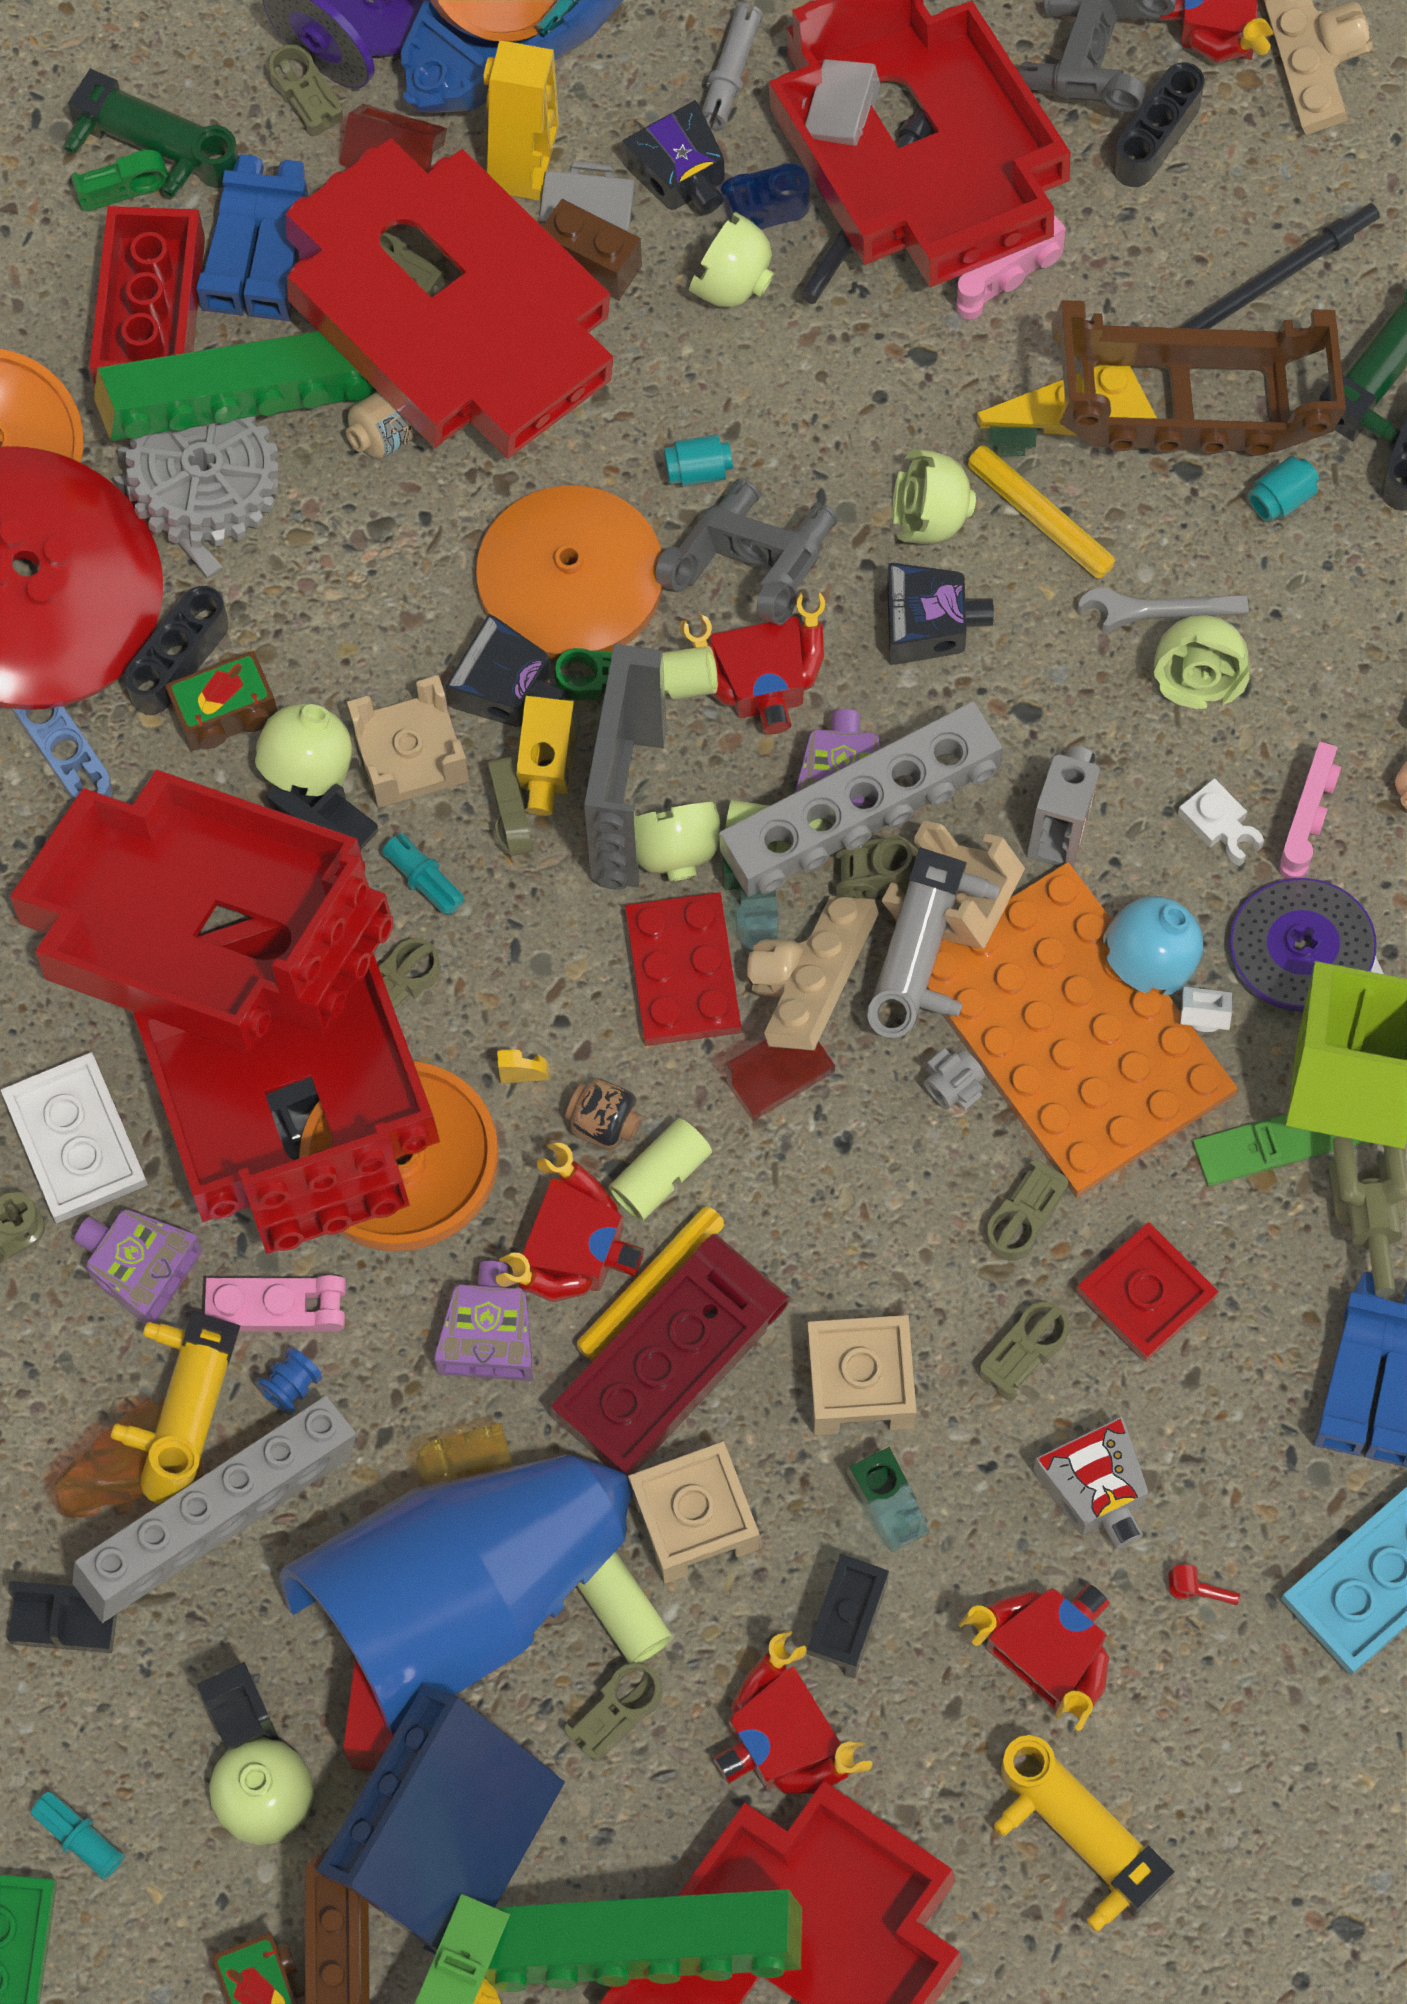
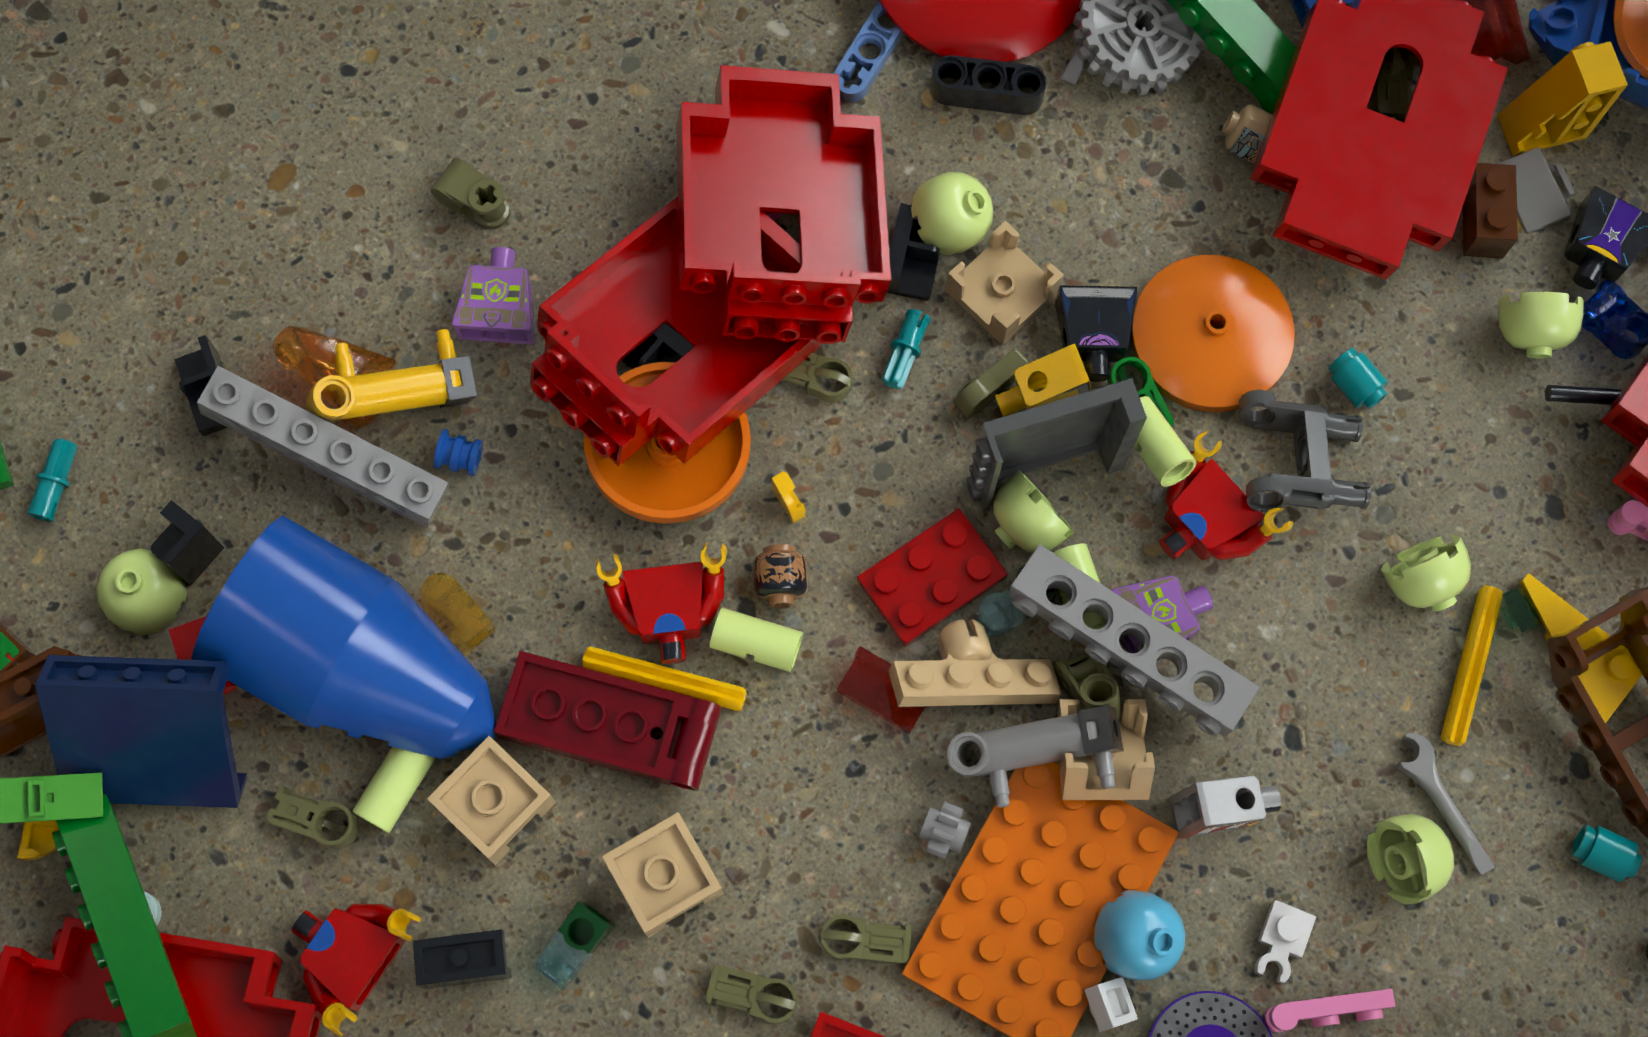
camera: 60 degrees right, 5 degrees up
(74, 1137) = (572, 210): white plate -> none
(222, 701) = (964, 136): brick -> none
(277, 1303) = (514, 412): bright pink plate -> none
(486, 1330) = (565, 575): medium lavender torso -> none
(930, 613) = (1331, 619): torso -> none

